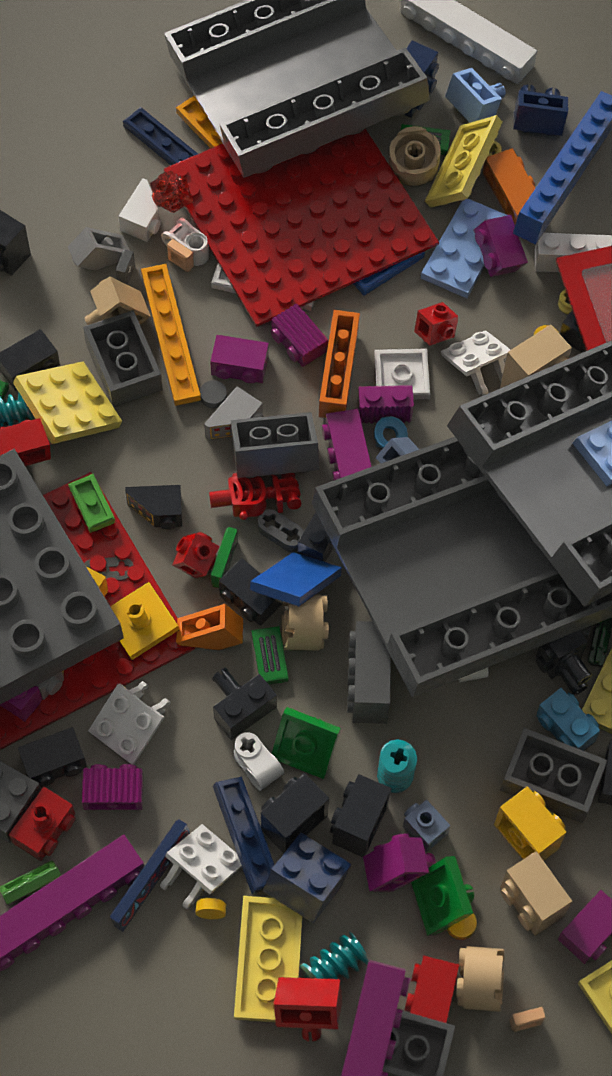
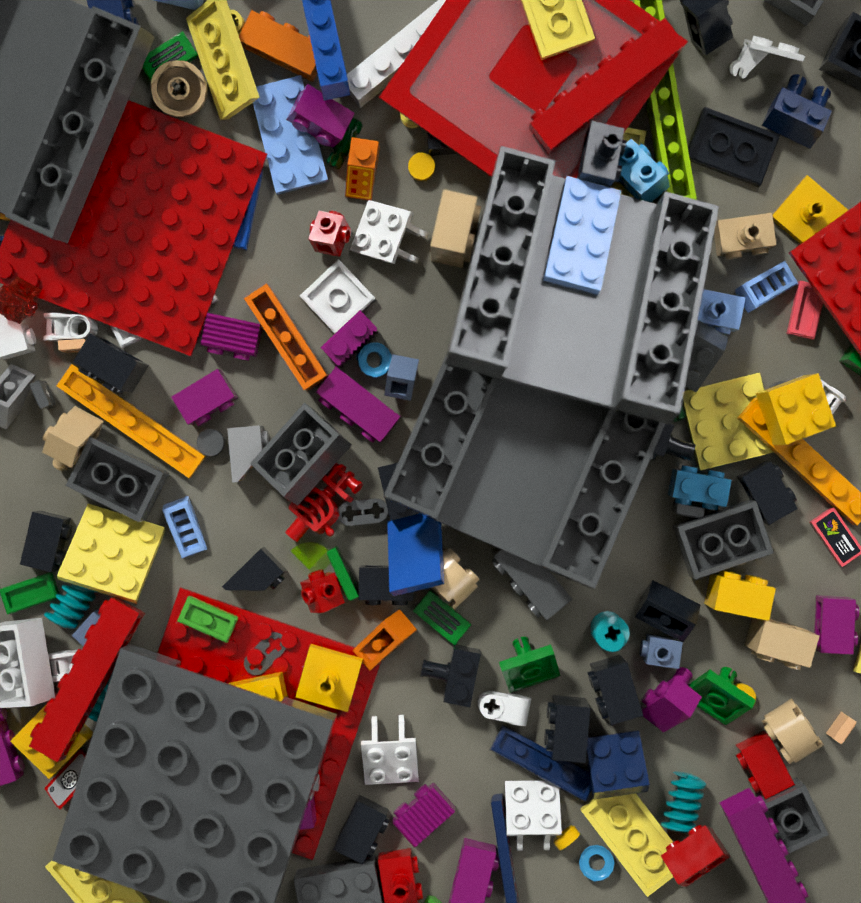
camera: 40 degrees left, 25 degrees up
(137, 412) = (176, 530): none -> light blue slope
(194, 281) = (110, 363): none -> black brick
(211, 525) = (309, 553): none -> clear neon green tile
(212, 943) = (590, 873): none -> dark azure piece
(458, 793) = (668, 611): none -> black brick
(500, 303) = (362, 168): none -> orange slope
(502, 281) = (343, 147): none -> dark green axle
(541, 727) = (687, 510): none -> dark grey tile

